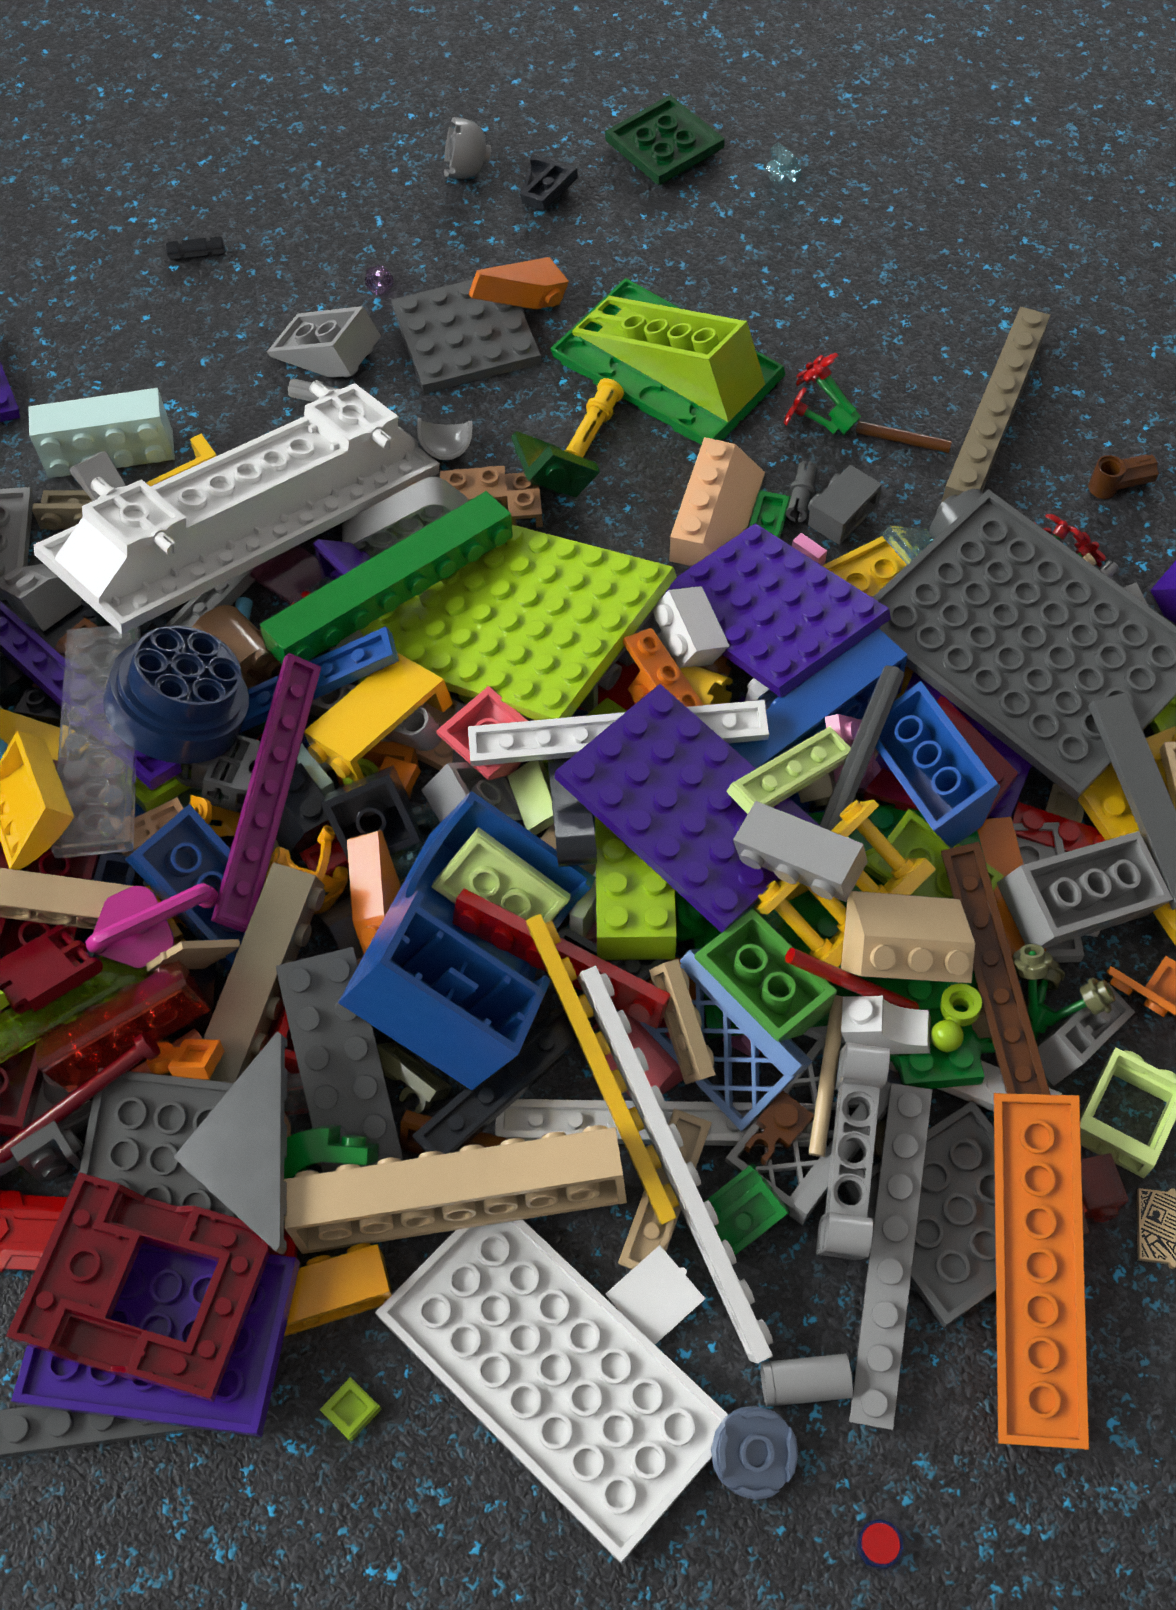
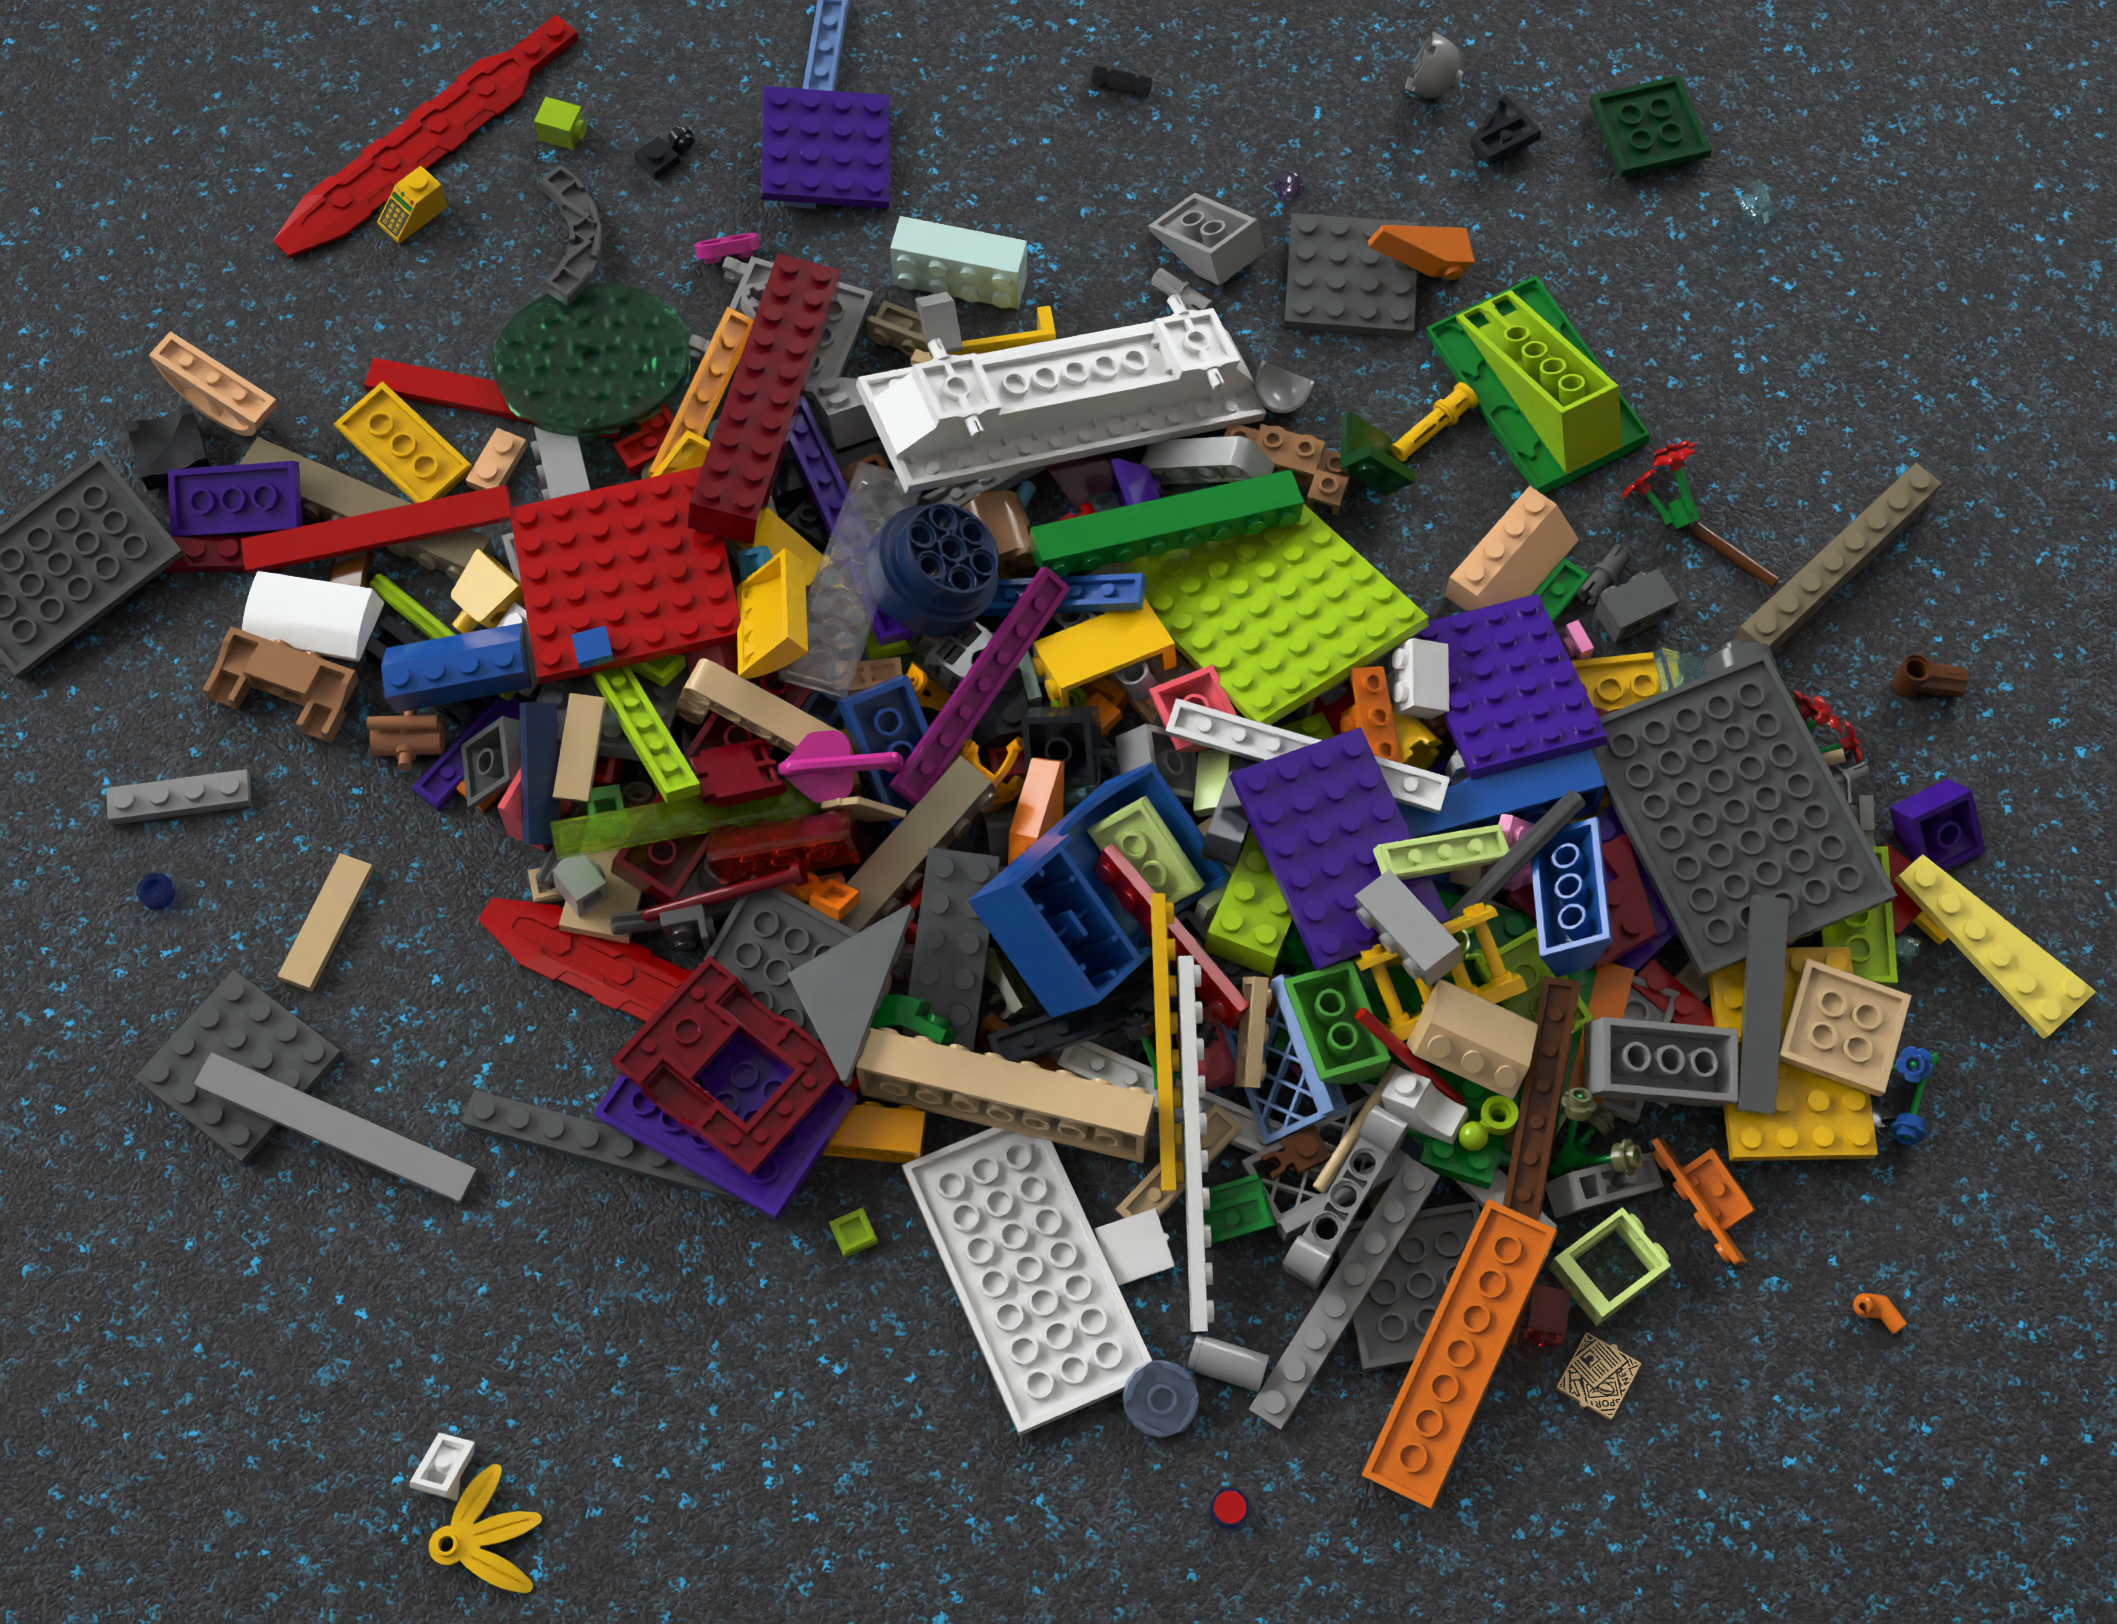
camera: 20 degrees right, 5 degrees up
(578, 1078) = (1140, 1027): none -> black plant

